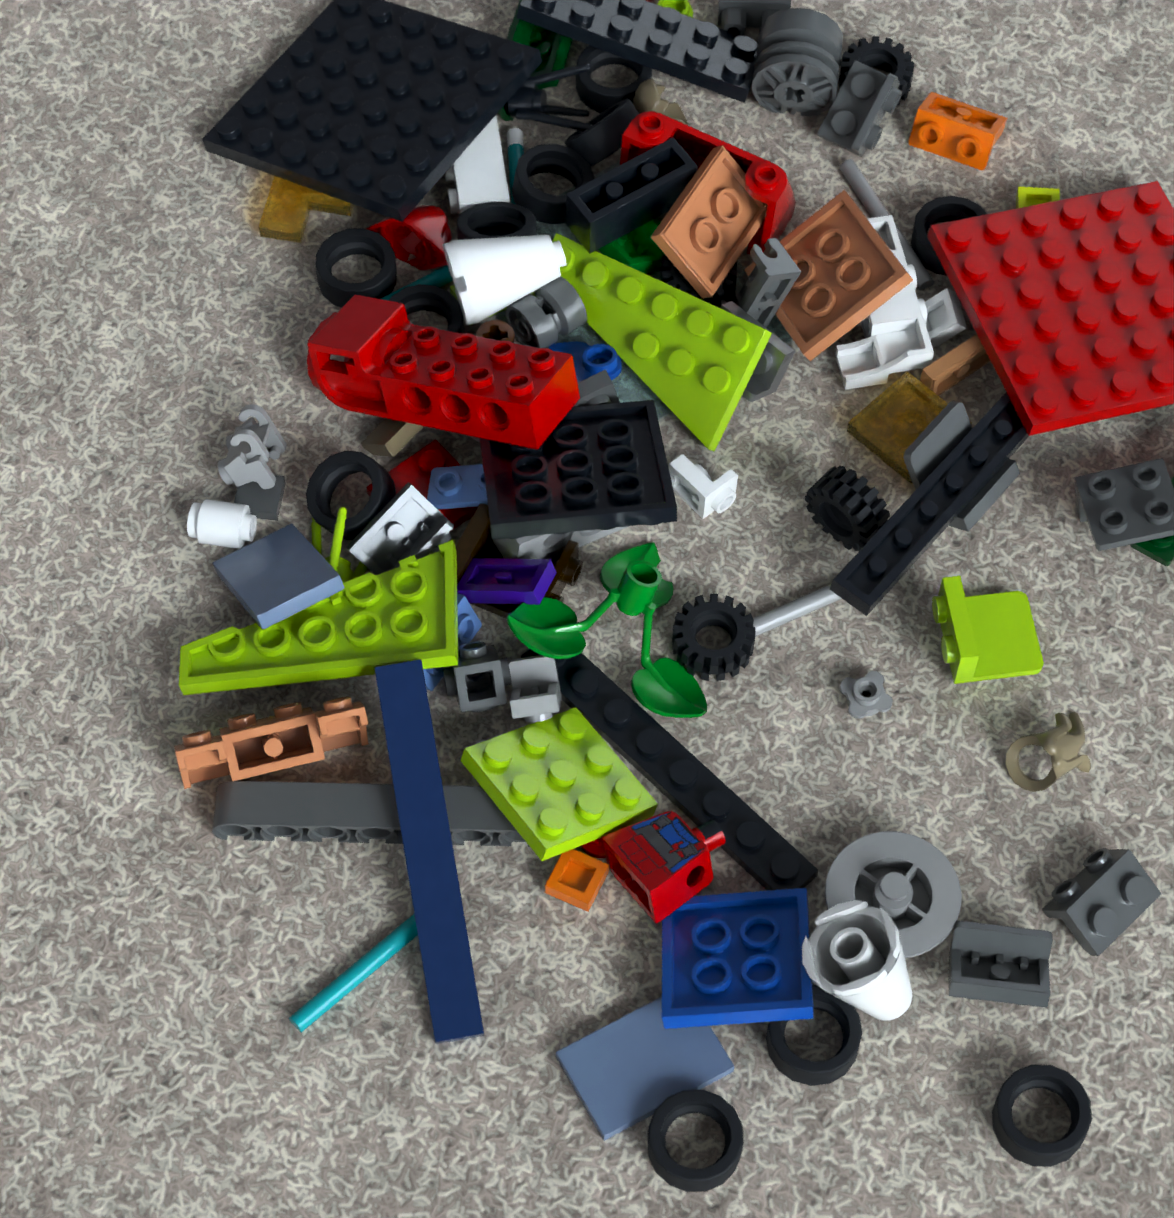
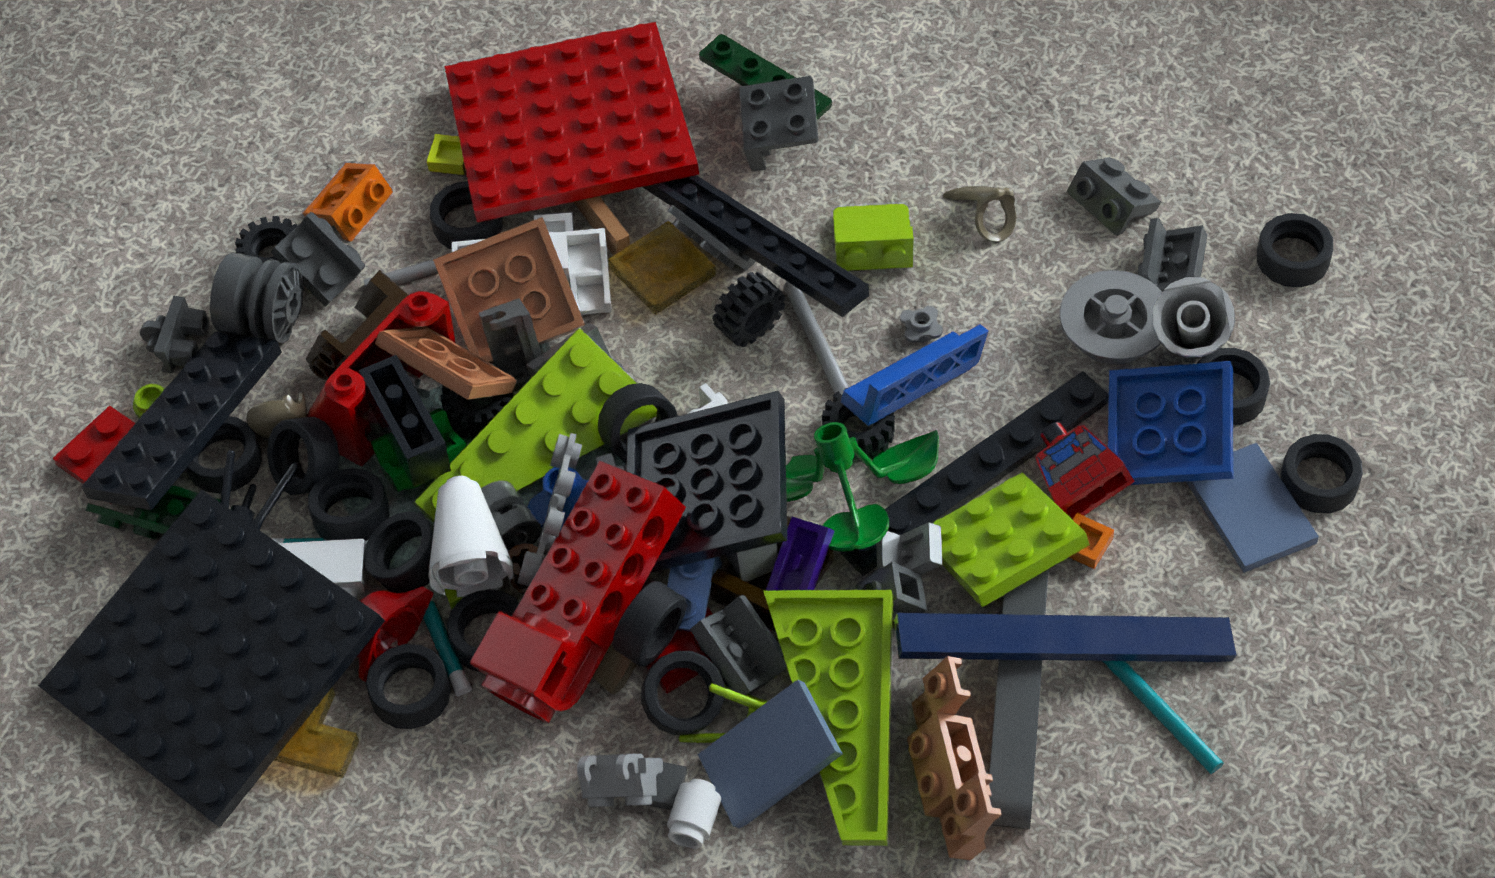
camera: 80 degrees left, 5 degrees down
(409, 443) = (649, 623): none -> black tyre
(593, 336) = (564, 456): none -> light grey plant
(694, 406) = (620, 406): none -> black tyre
(775, 681) = (915, 375): none -> blue fence
(801, 167) = (375, 303): none -> dark brown panel

